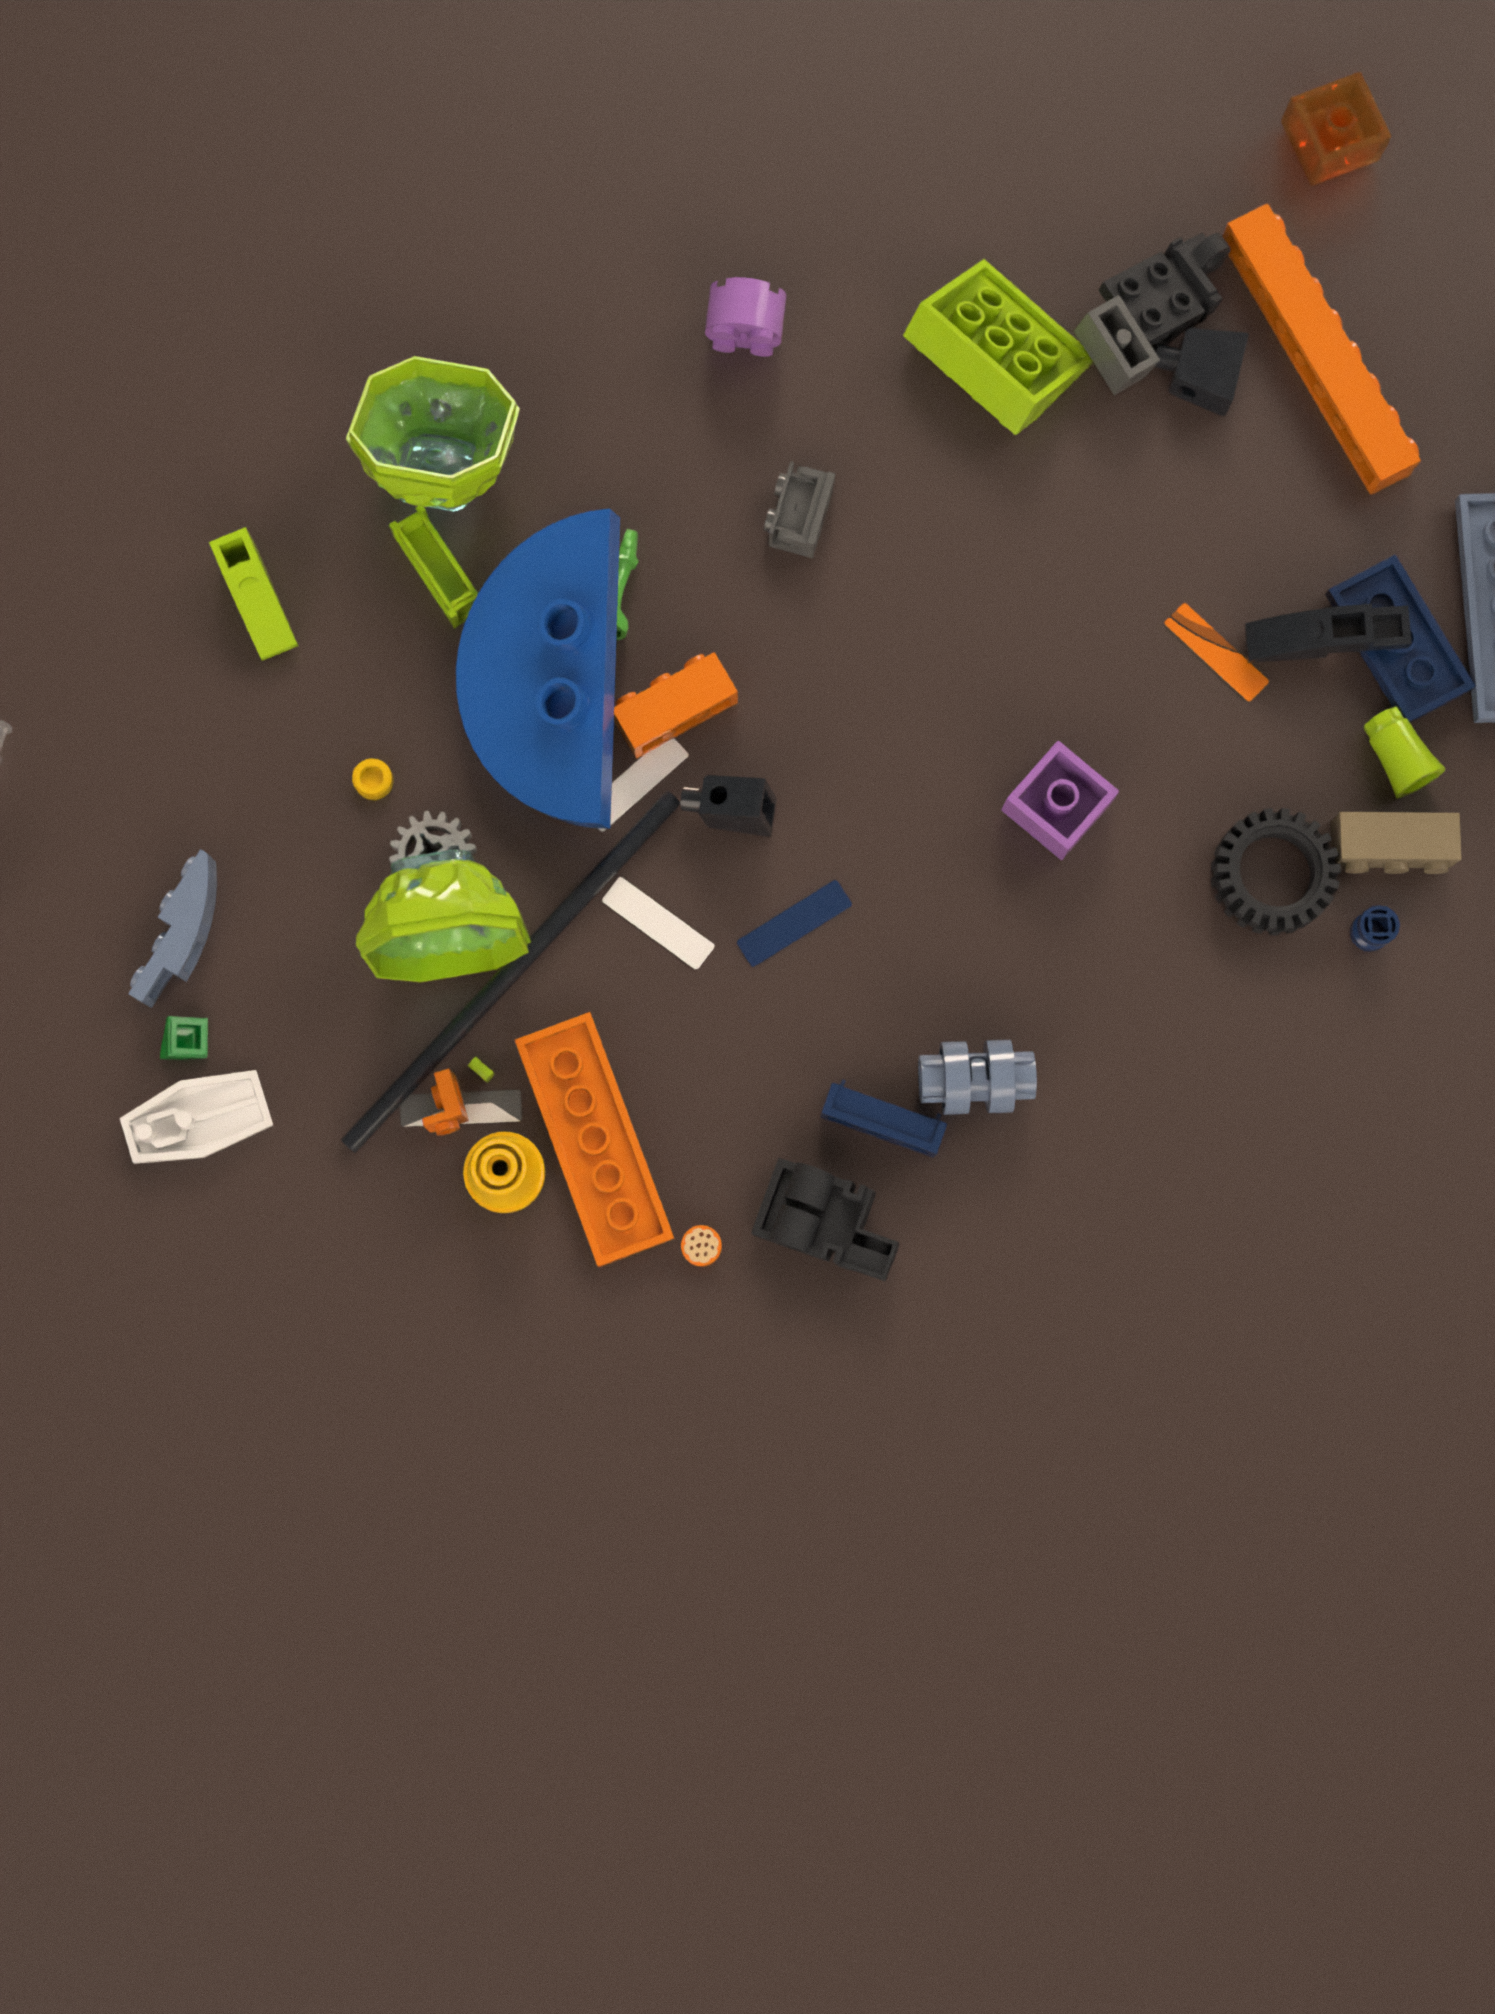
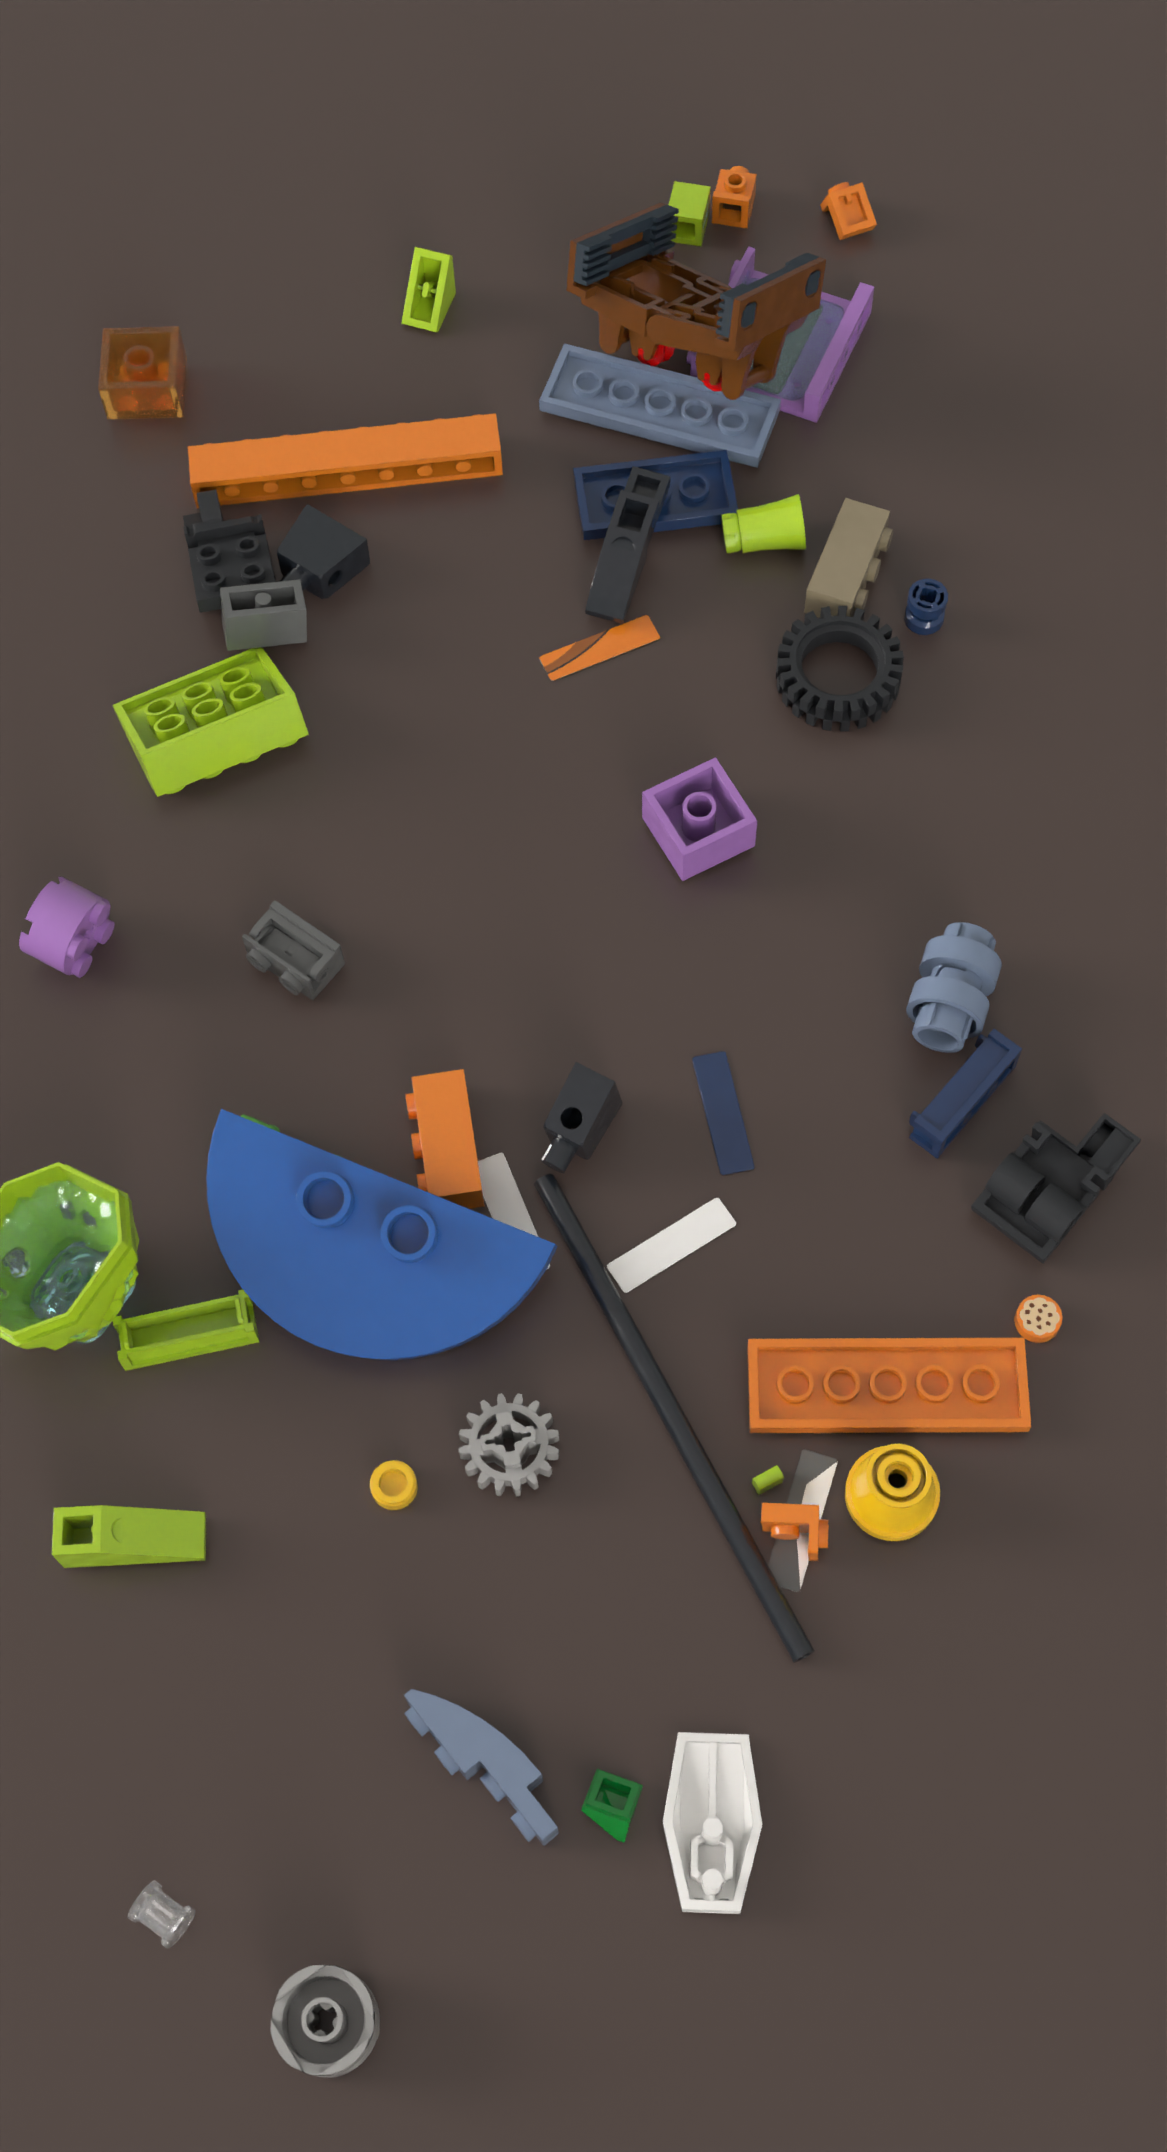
camera: 65 degrees left, 15 degrees down
(440, 920) = (598, 1438): lime rock -> none

